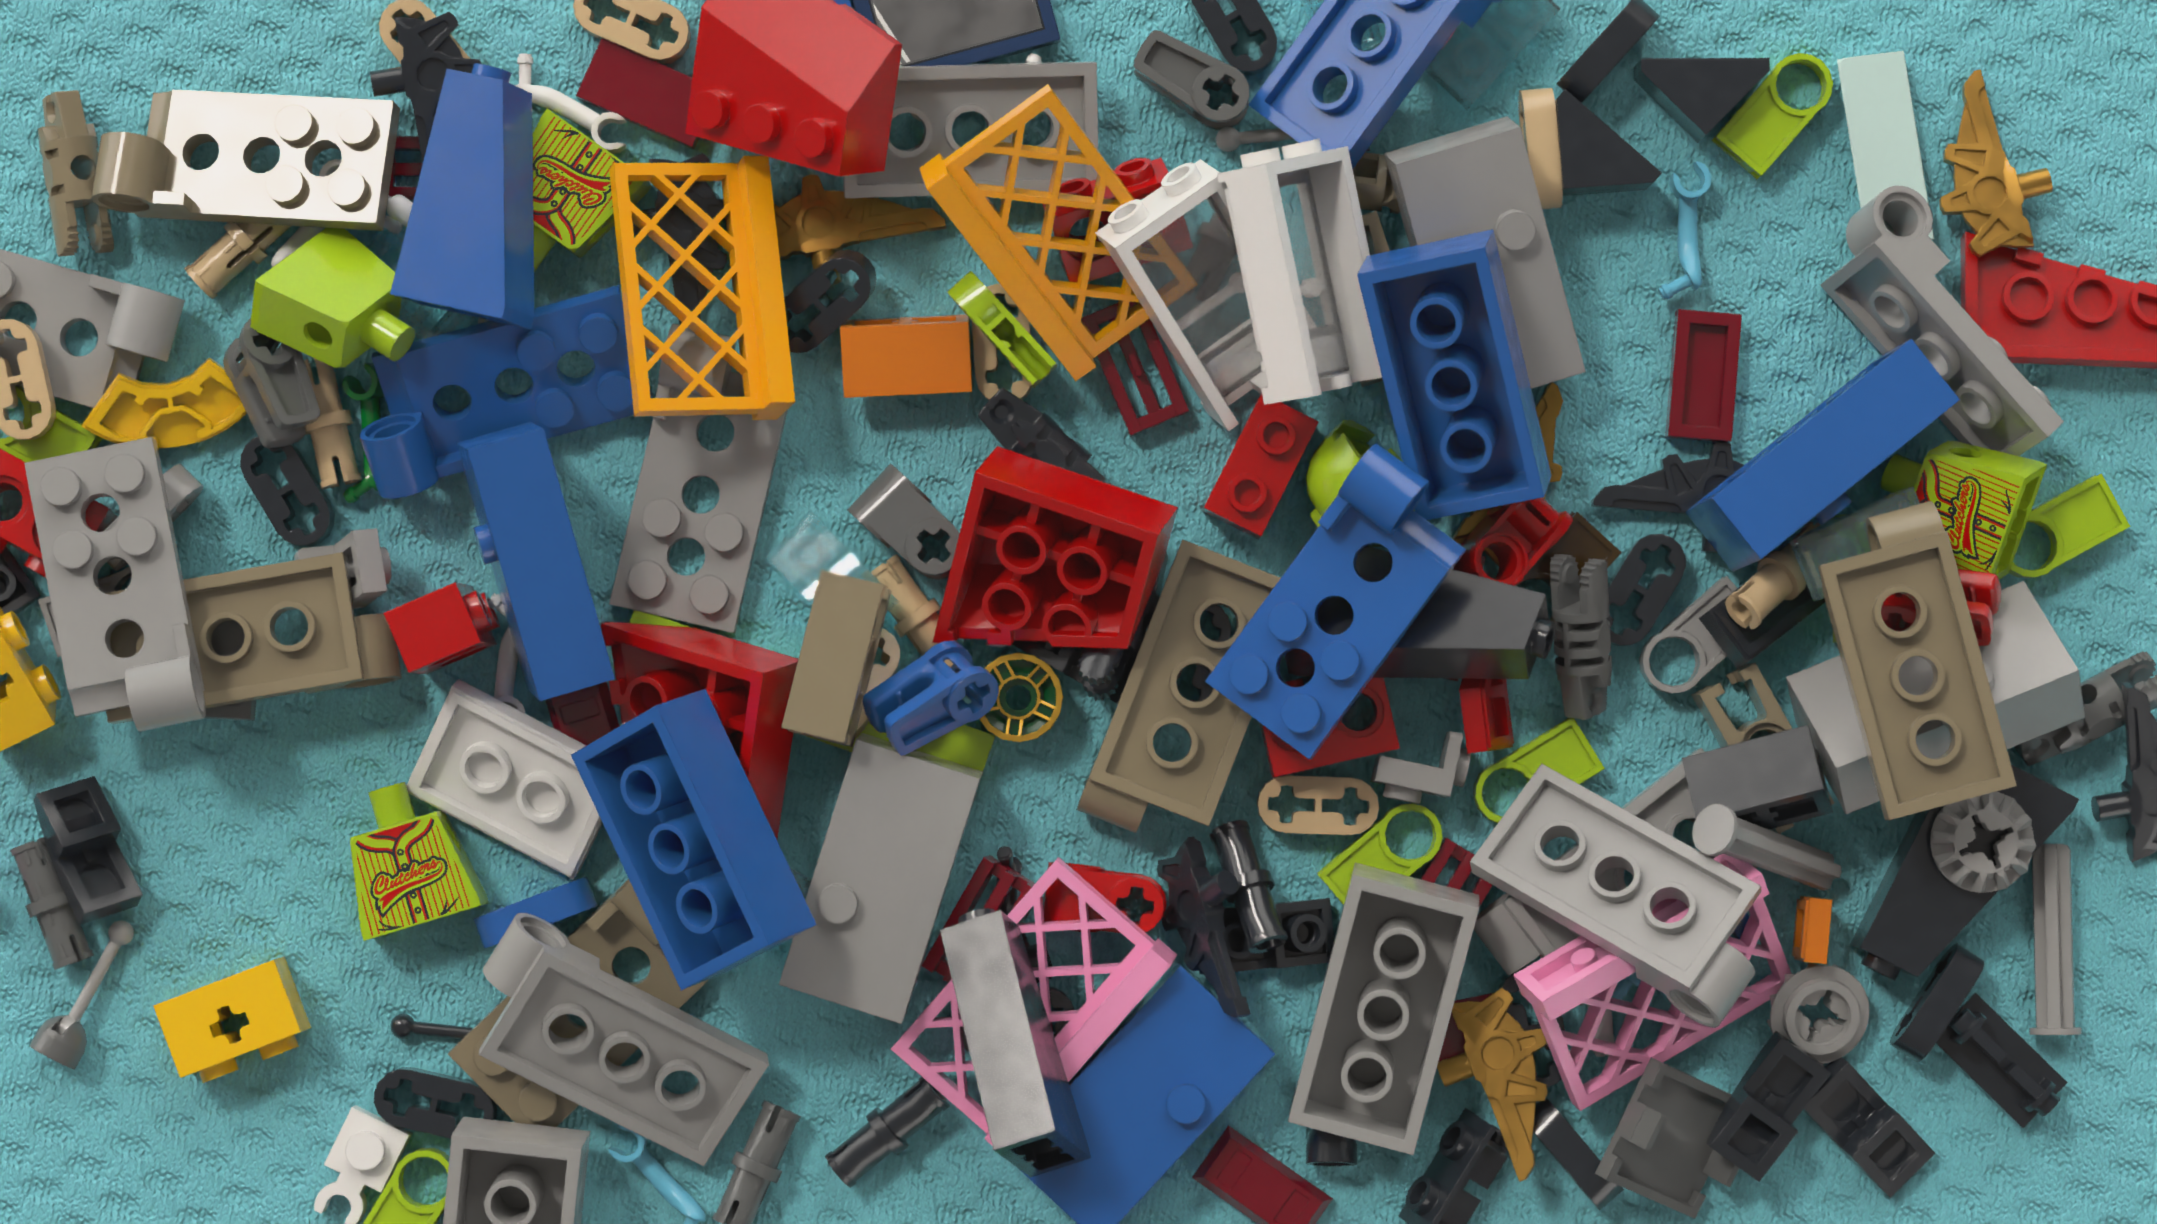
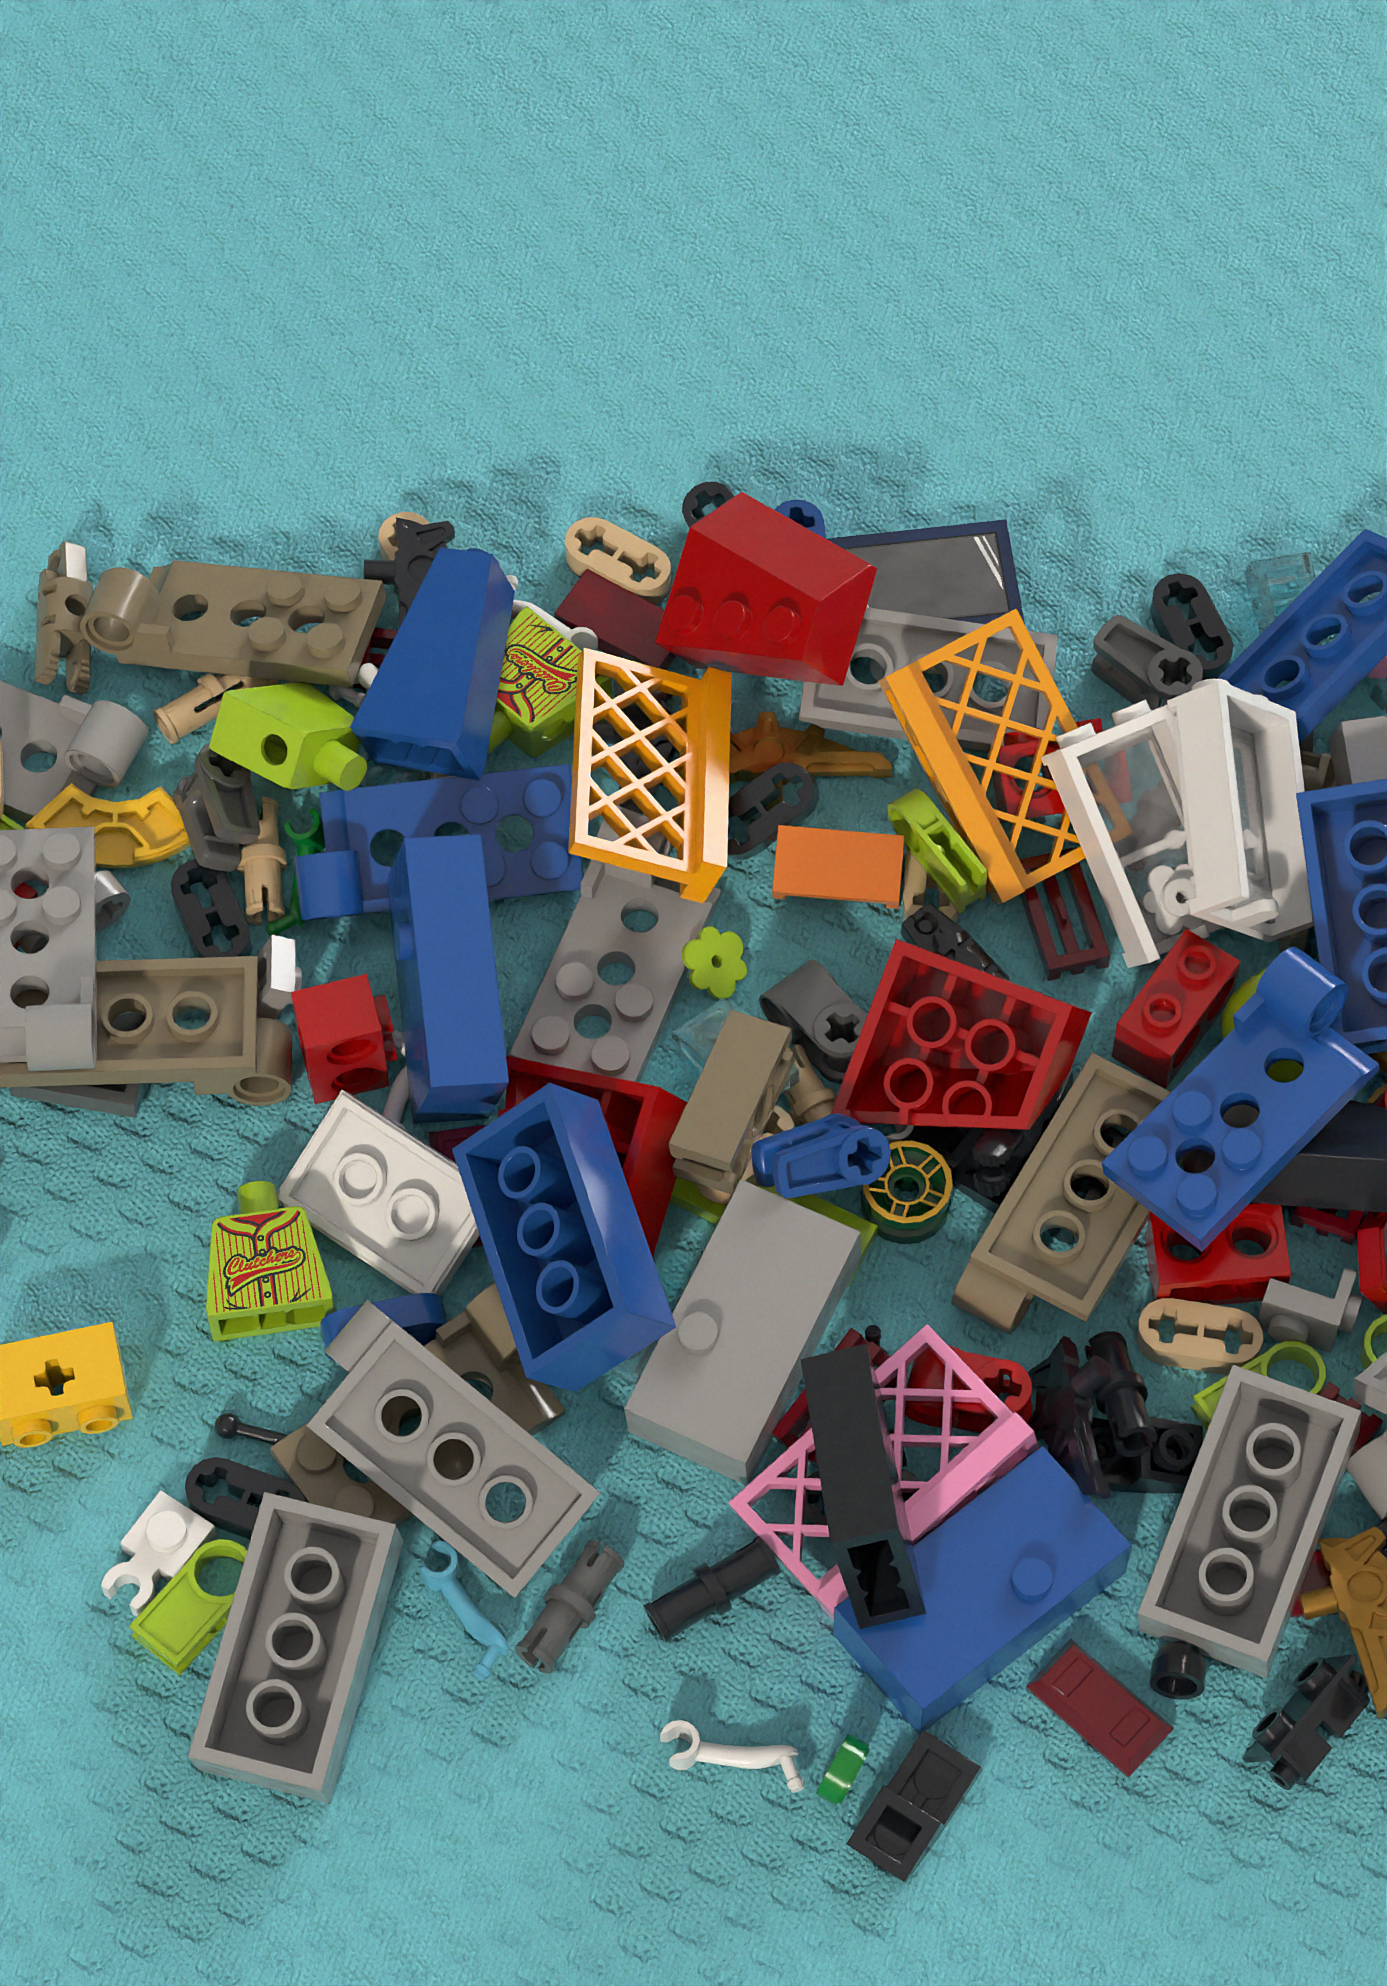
camera: 10 degrees right, 25 degrees down
(809, 469) = (724, 952): none -> lime plant
(1233, 352) = (1161, 899): none -> white plant

